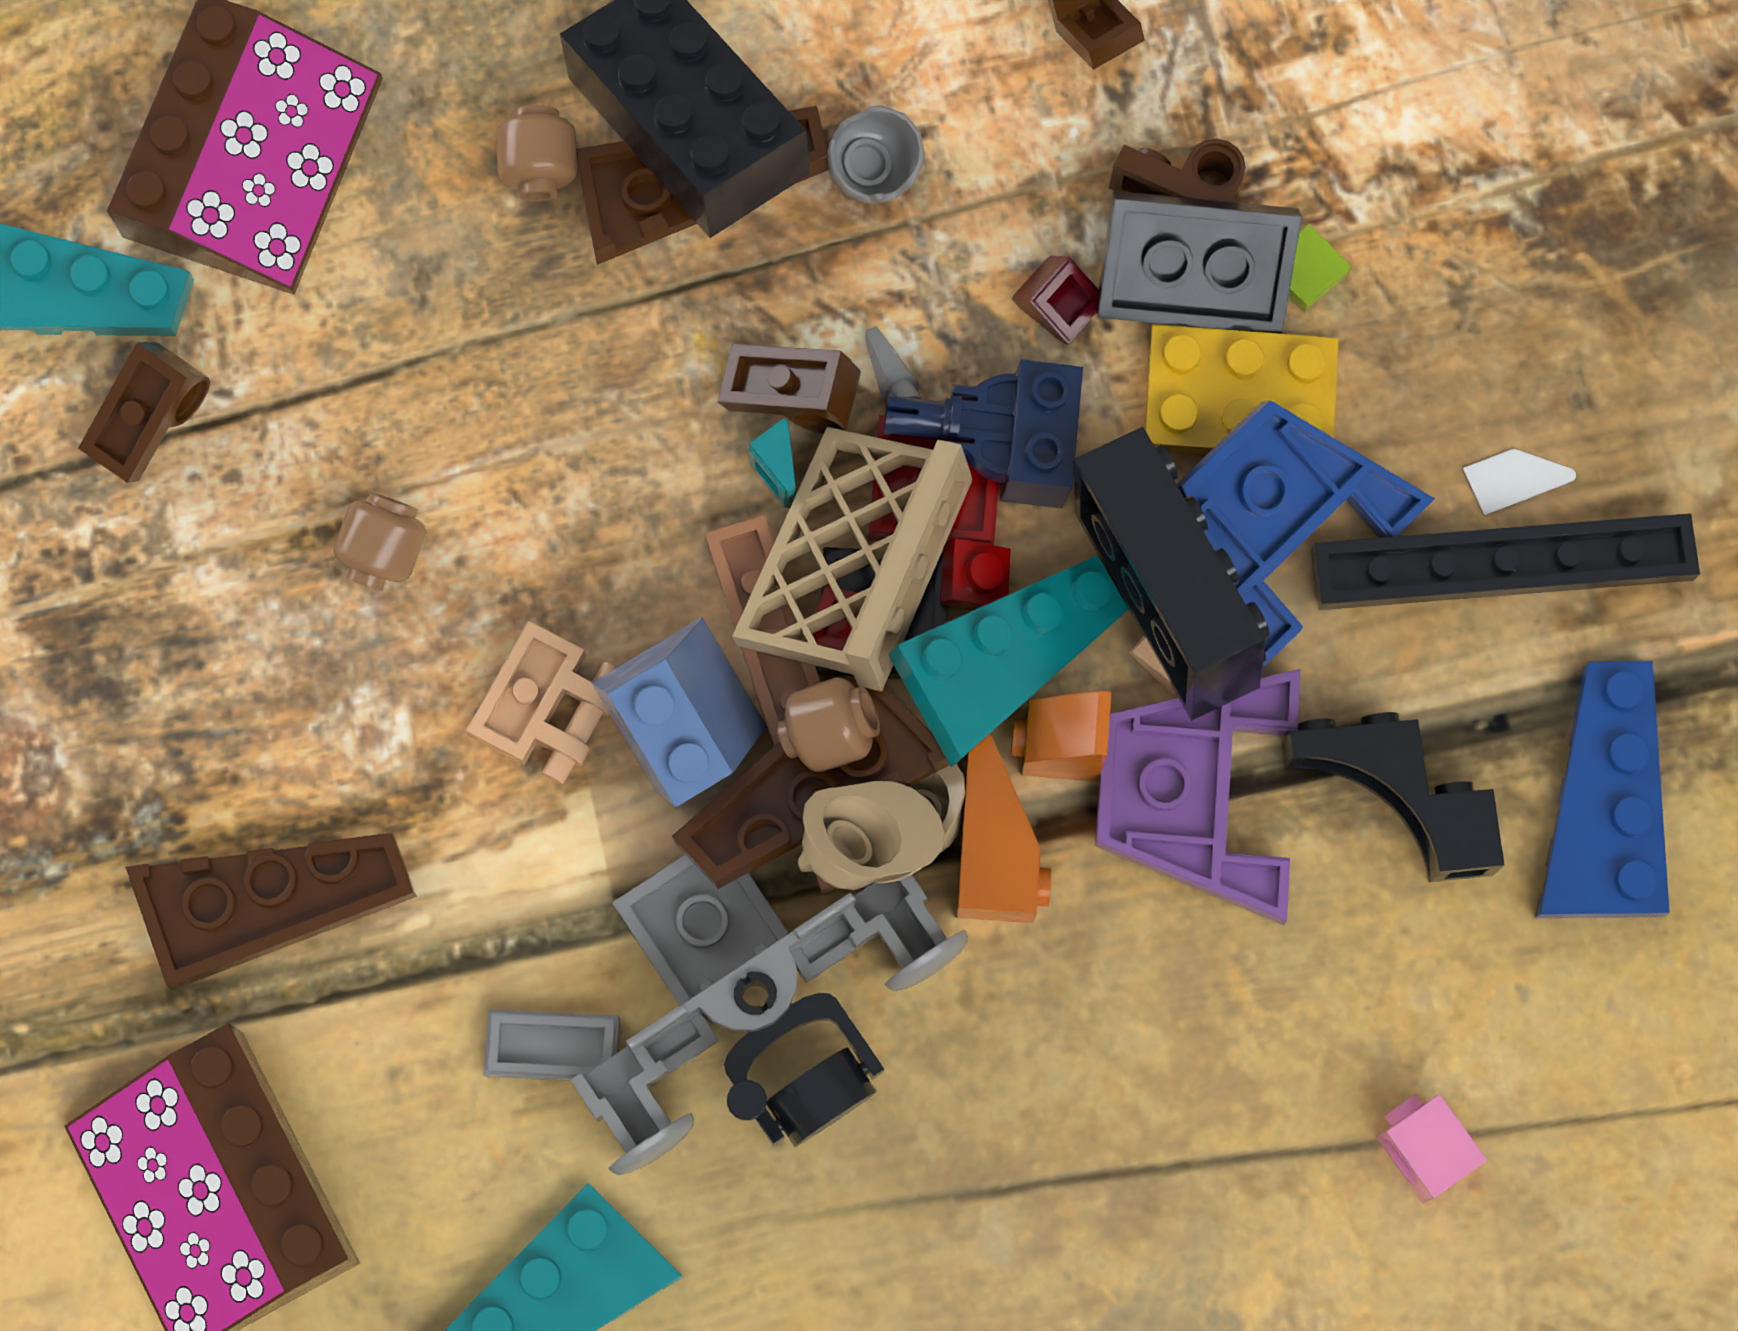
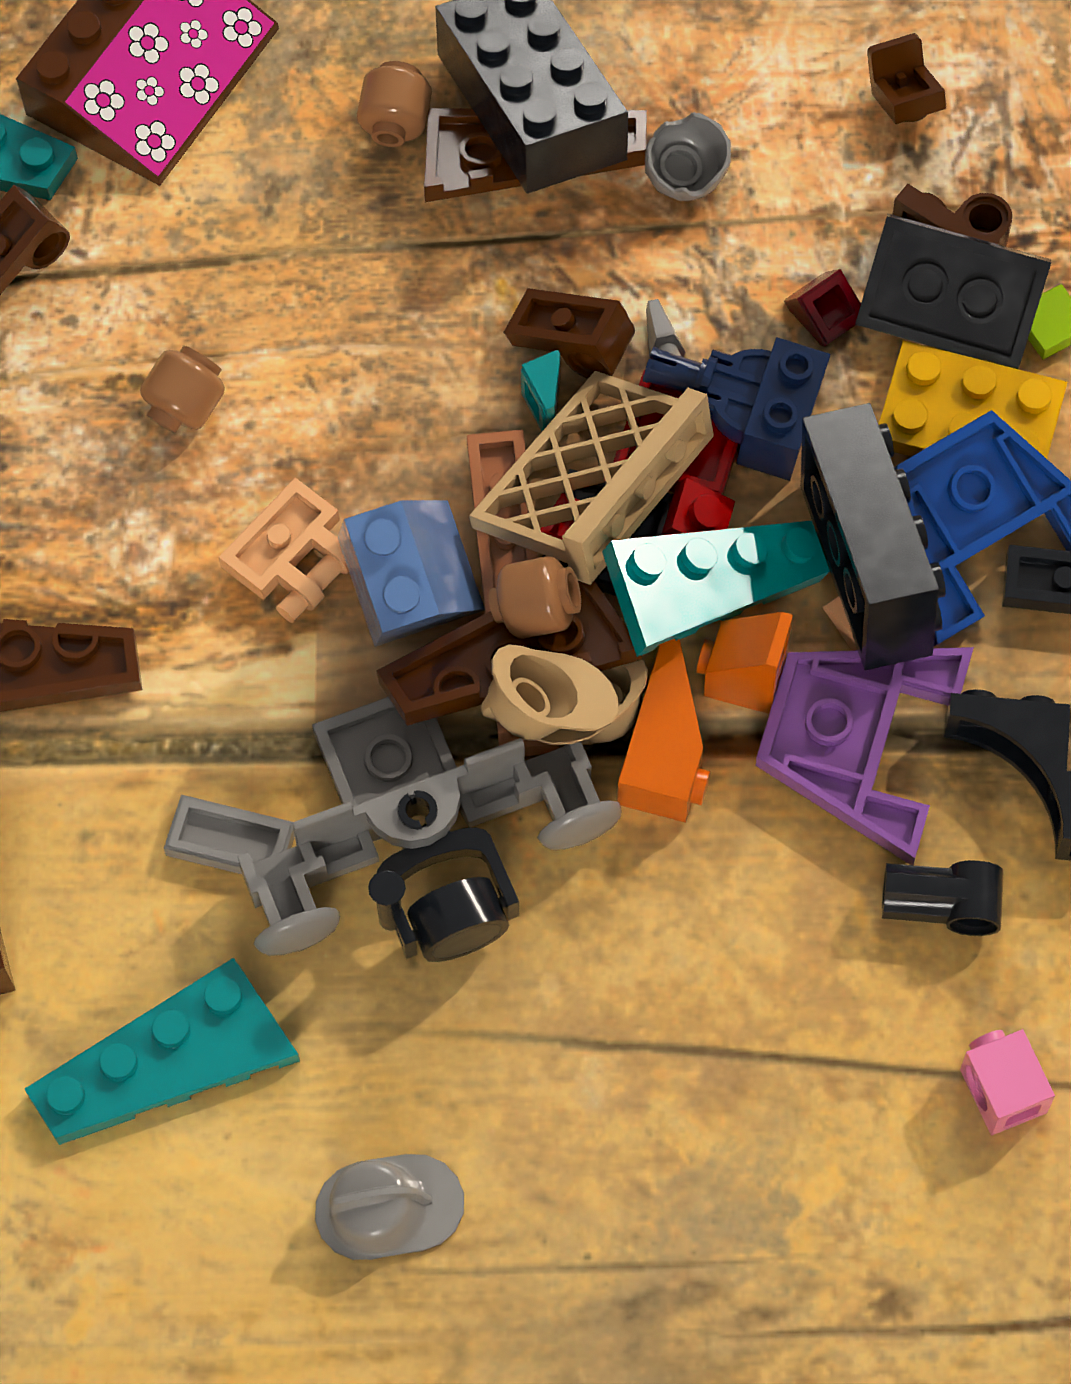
camera: 15 degrees right, 10 degrees down
(1342, 952) = (960, 896): none -> black piece

